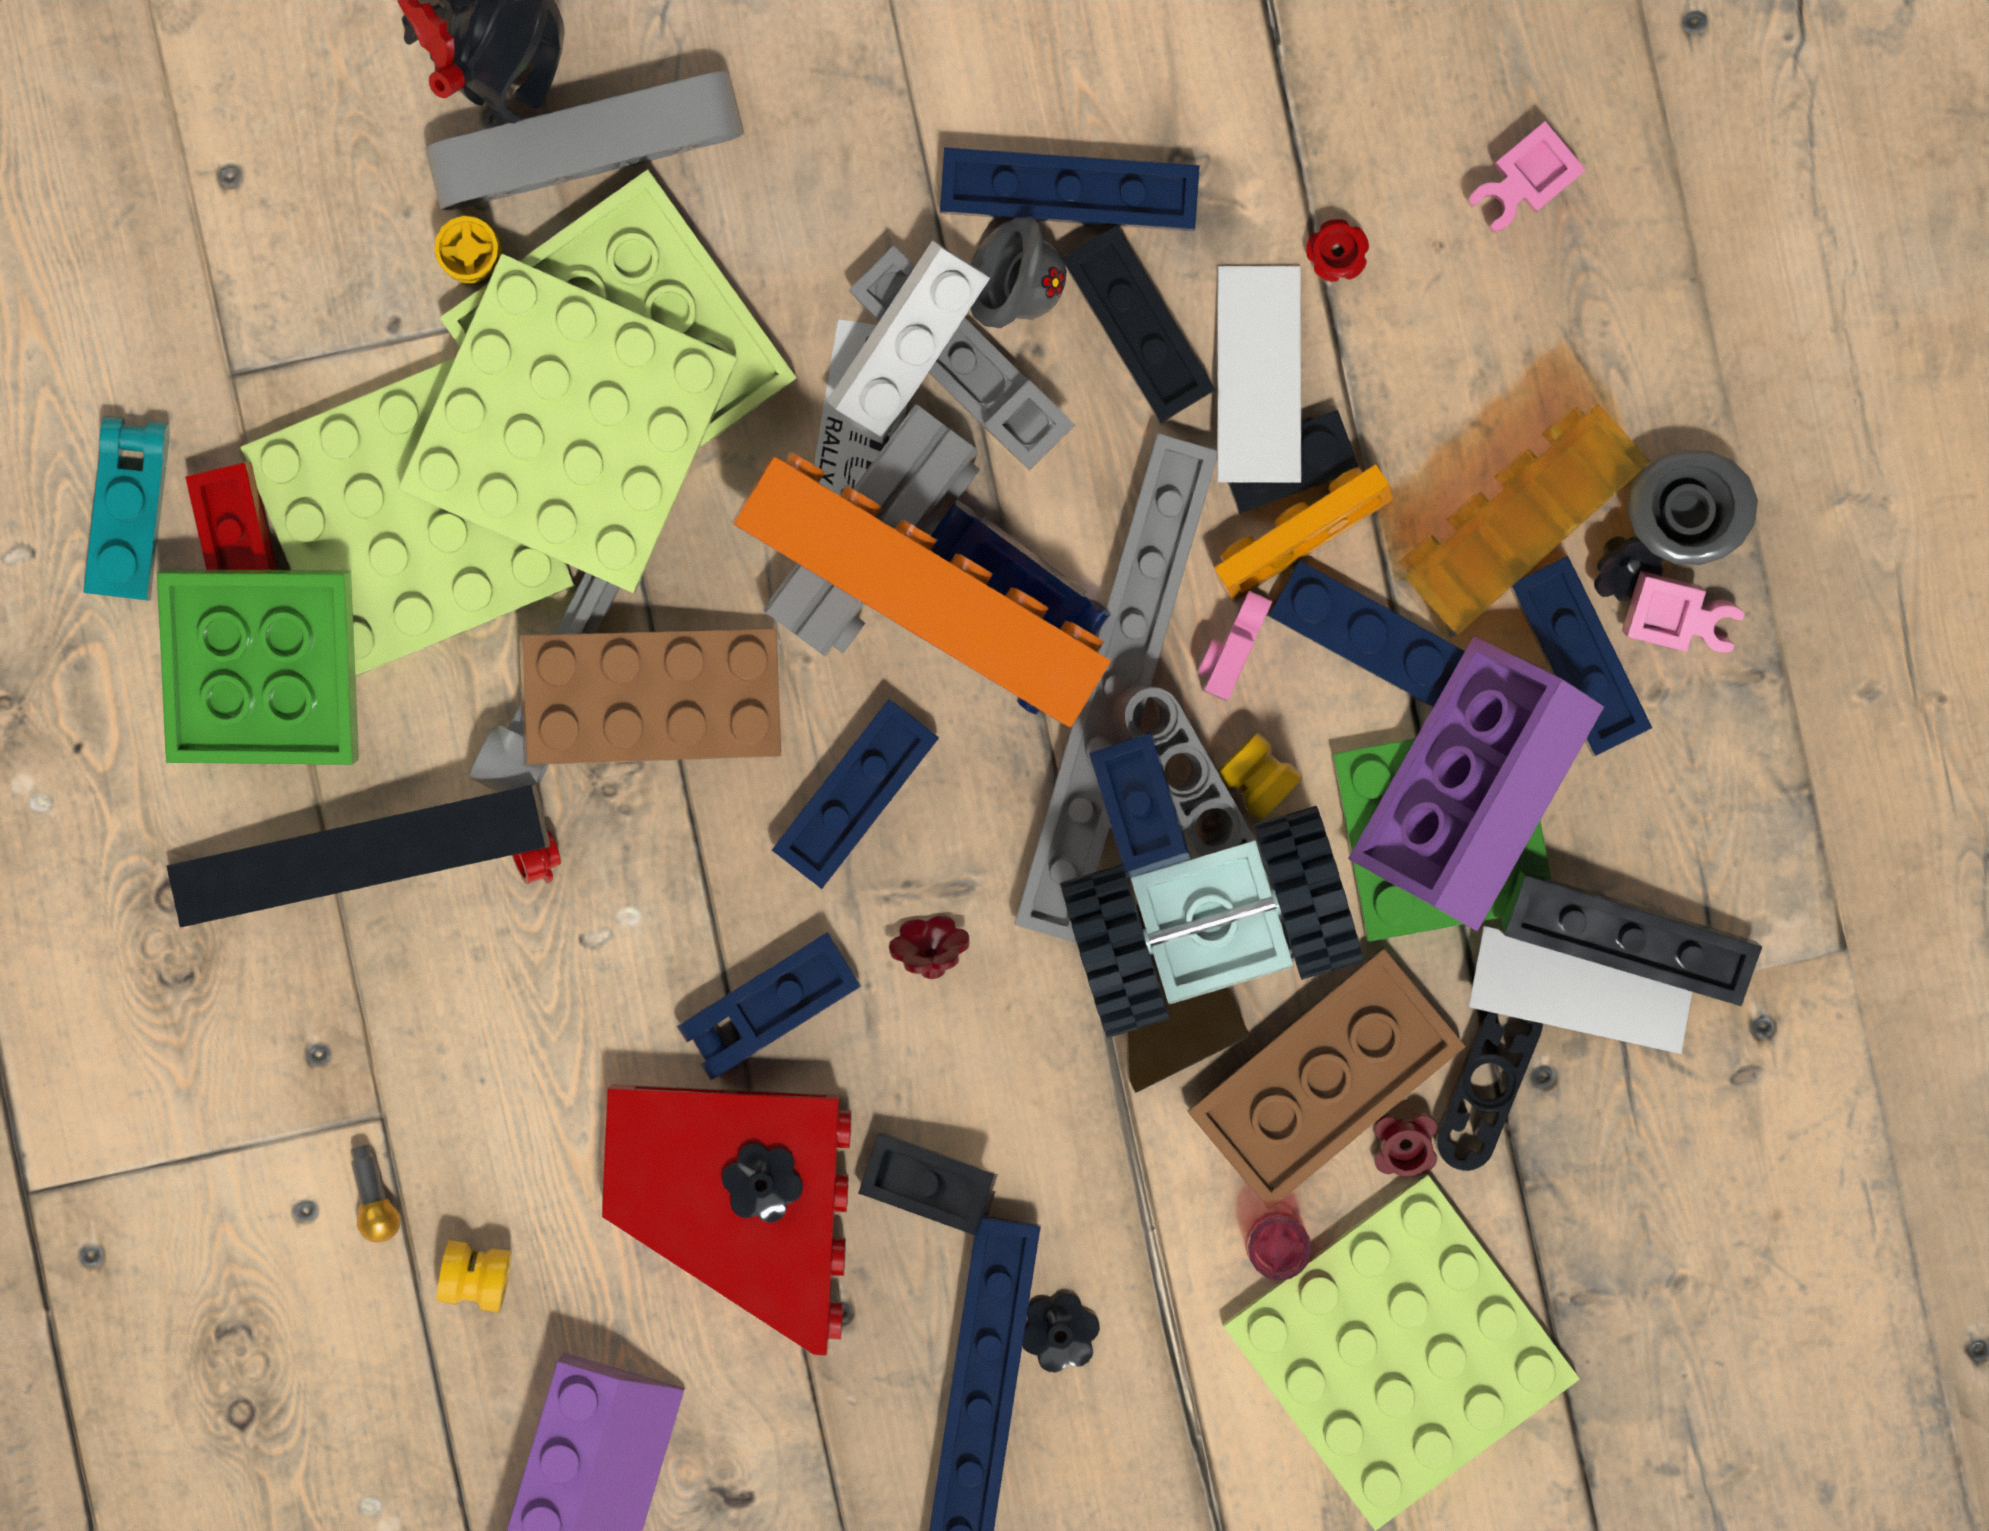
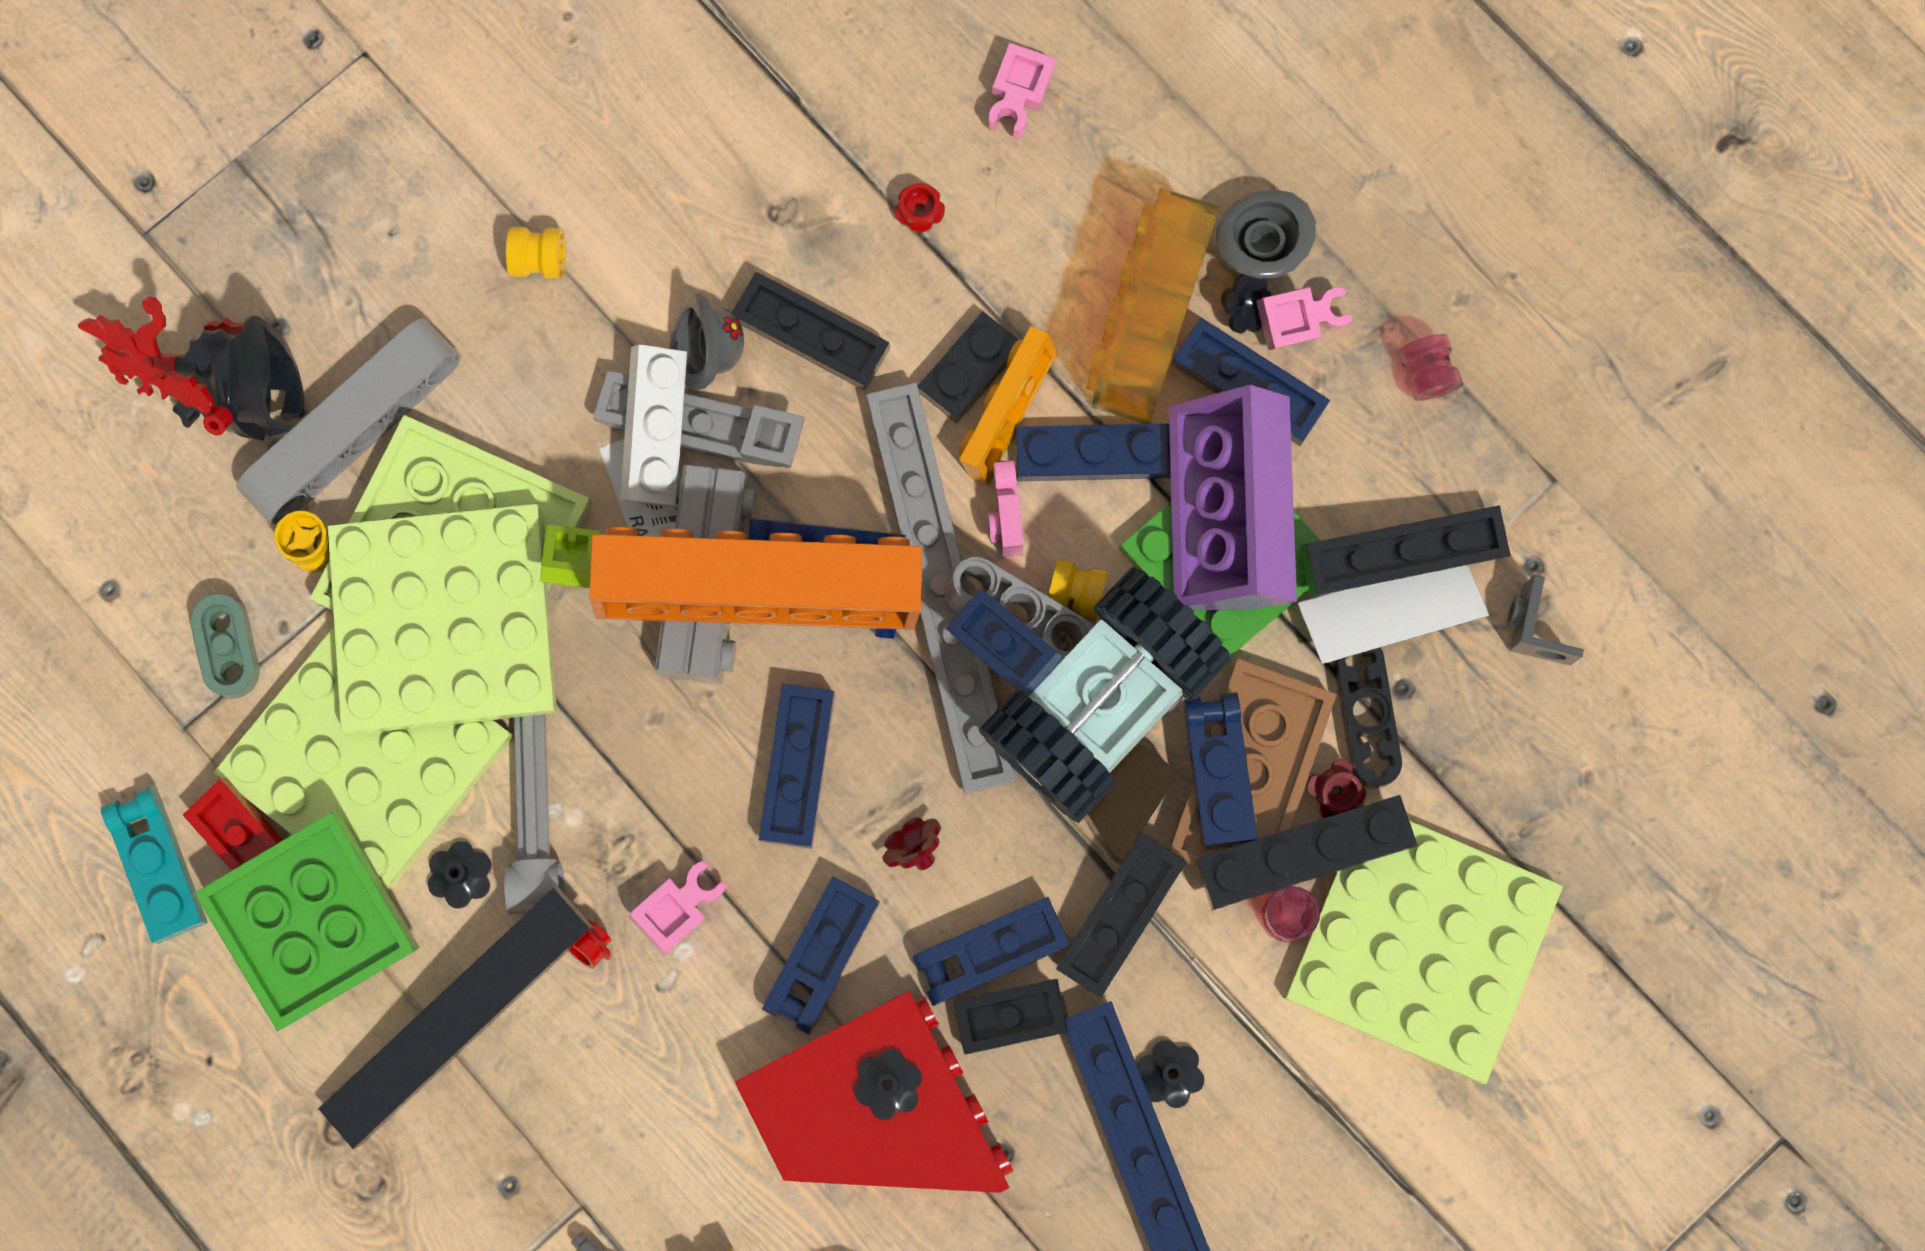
camera: 30 degrees left, 10 degrees down
(323, 316) = (226, 648): none -> sand green plate
(457, 706) = (471, 881): none -> black plant
(638, 873) = (672, 912): none -> bright pink plate
(650, 696) = (607, 780): medium nougat plate -> none
(739, 442) = (567, 556): none -> lime bracket
(889, 64) = (535, 252): none -> yellow wheel
(949, 1103) = (992, 950): none -> dark blue plate
(1069, 189) = (710, 267): dark blue plate -> none
(1103, 1145) = (1121, 915): none -> black plate
(1259, 374) = (914, 318): white sticker -> none
(1292, 1060) = (1220, 772): none -> dark blue plate
(1331, 1193) = (1306, 852): none -> black plate
(1711, 1080) = (1523, 617): none -> dark grey bracket
(1783, 753) = (1430, 367): none -> clear pink wheel

